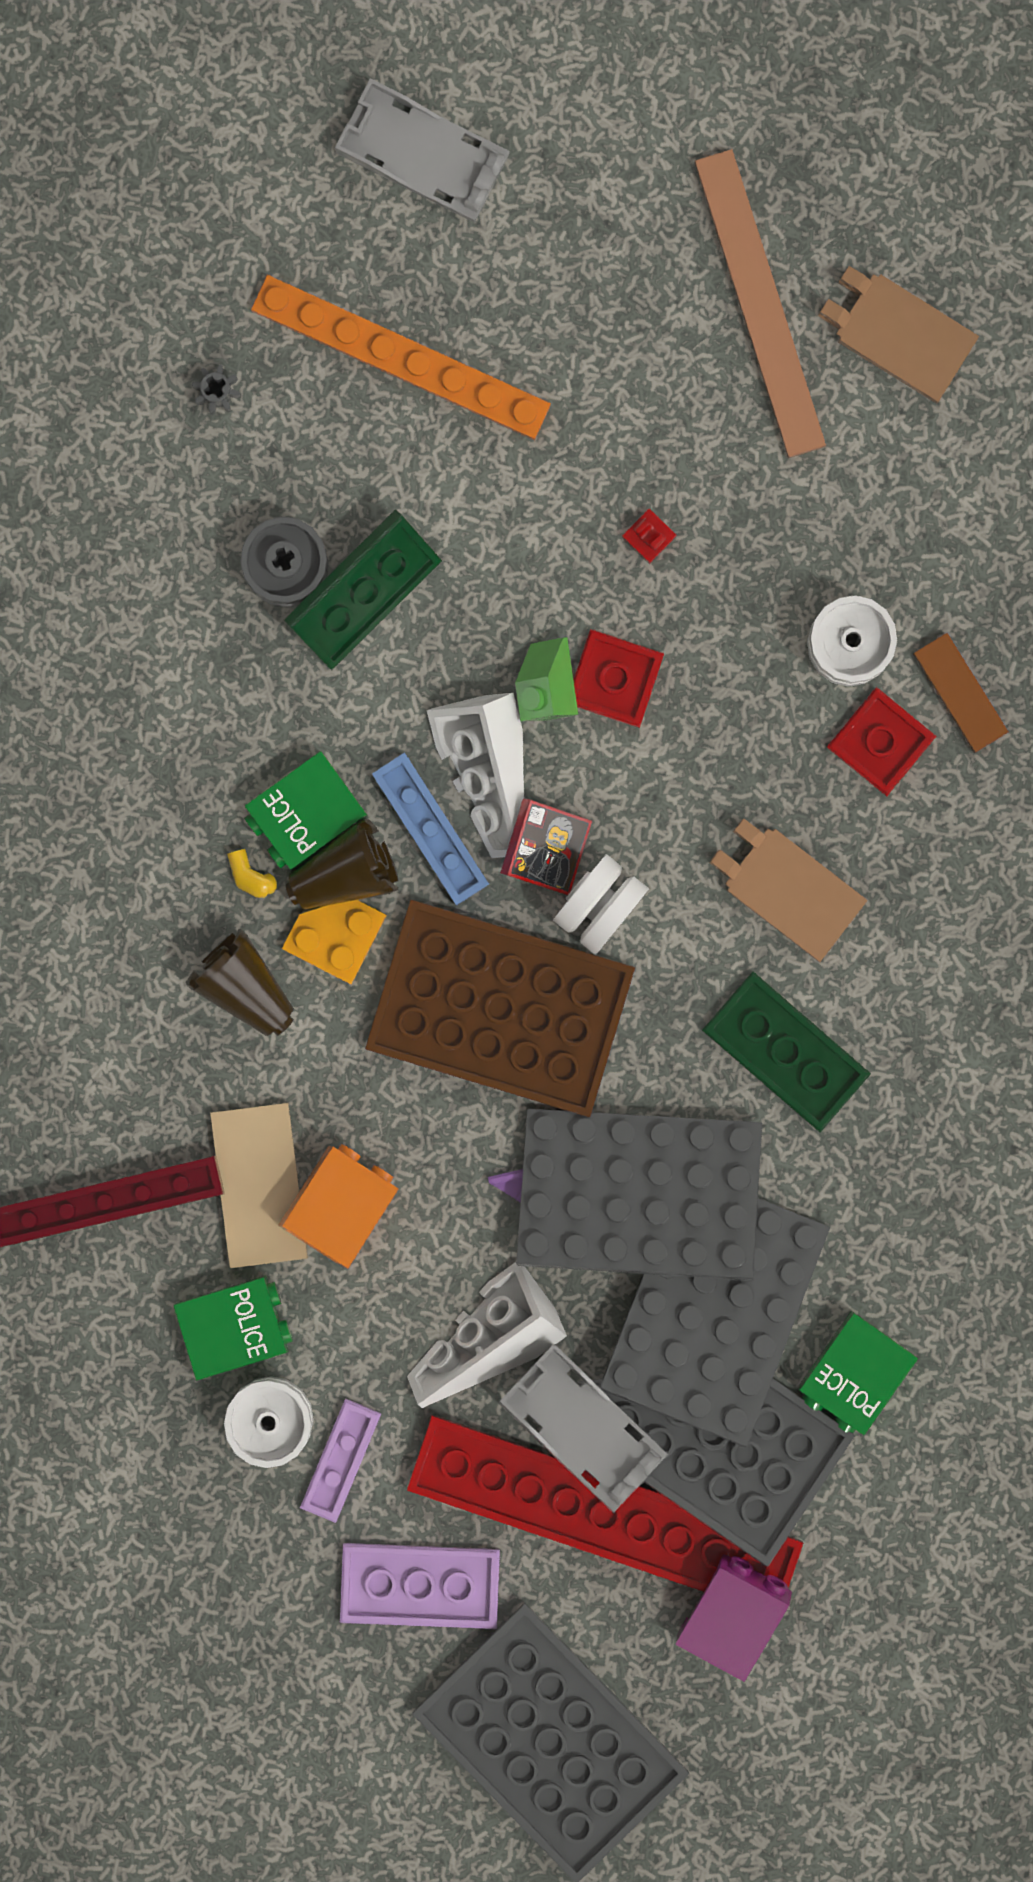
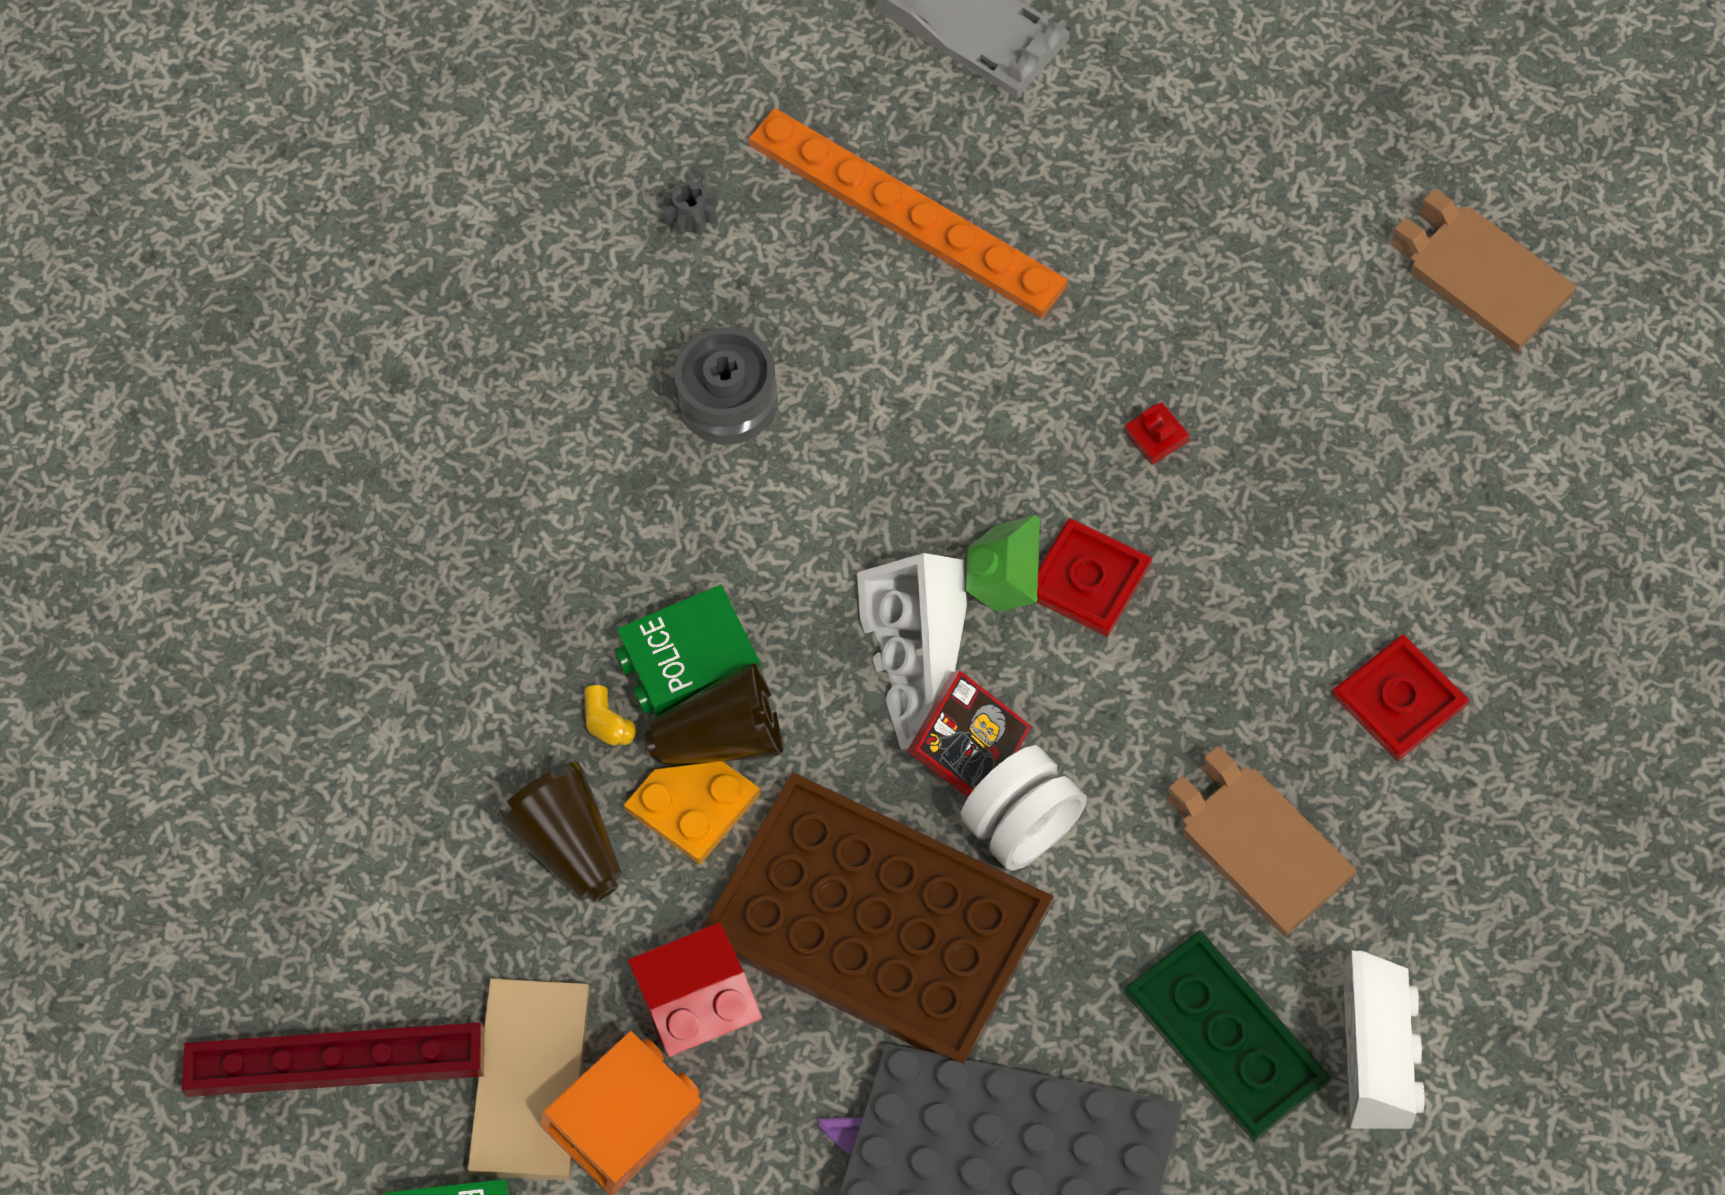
camera: 15 degrees right, 25 degrees down
(363, 590) = (809, 426): dark green tile -> none
(373, 1100) = (694, 989): none -> red slope
(430, 829) = (834, 702): medium blue plate -> none
(760, 303) = (1327, 224): nougat tile -> none
(874, 634) = (1380, 571): white wheel -> none
(906, 1046) = (1381, 1044): none -> white slope
(960, 692) = (1506, 659): dark orange tile -> none

